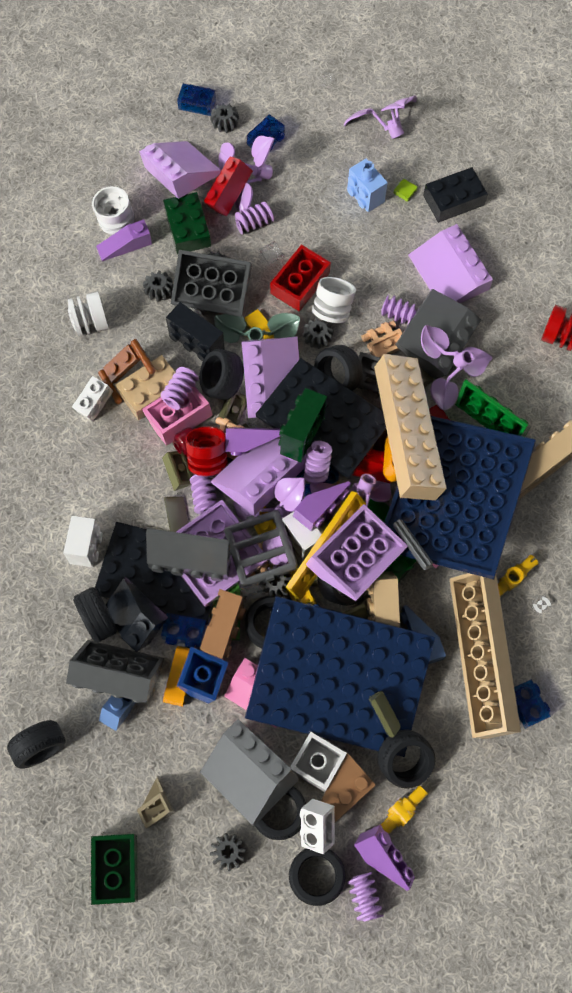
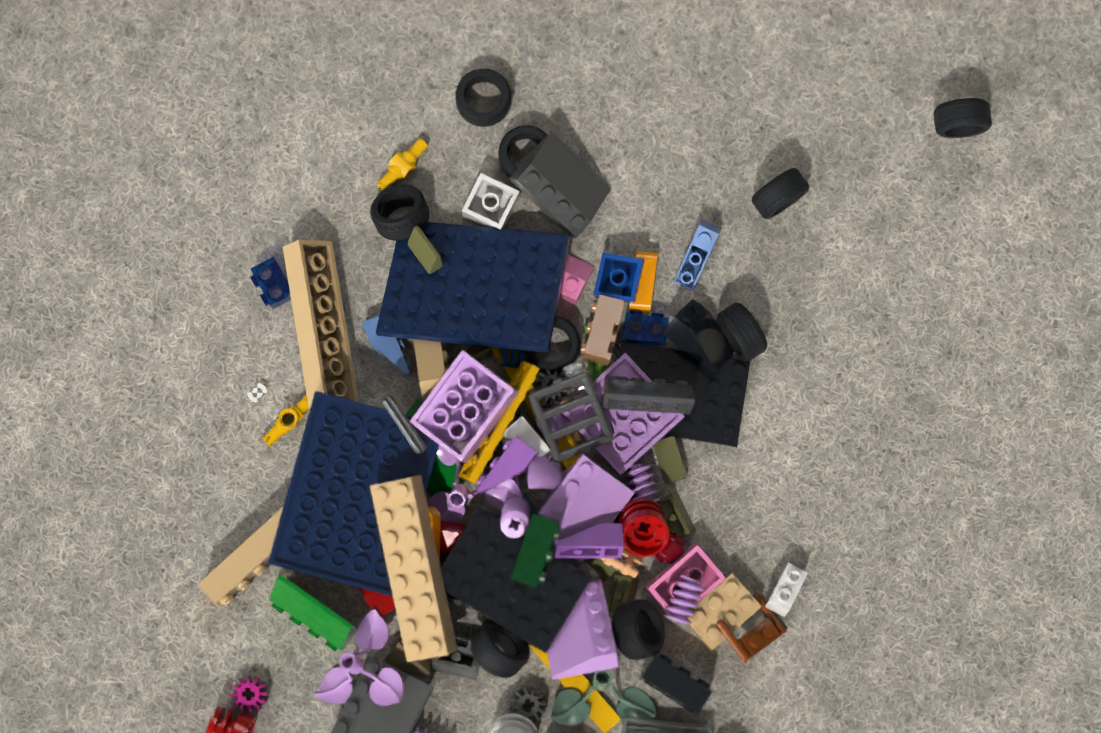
camera: 175 degrees right, 10 degrees up
(82, 541) = (769, 413): white brick -> none
(87, 313) = (809, 699): white wheel -> none
(114, 671) = (710, 274): dark grey slope -> none
(114, 869) = (683, 85): dark green brick -> none
(156, 806) = (651, 151): dark tan slope -> none
(222, 847) = (566, 117): dark grey gear -> none
(317, 826) = (486, 137): white brick -> none
(347, 787) = (459, 177): medium nougat wedge -> none
(364, 897) = (434, 82): lavender piece -> none
(382, 855) = (418, 120): medium lavender slope -> none
(384, 344) = (444, 698): light nougat plate -> none
(546, 359) = (244, 700): none -> dark pink gear

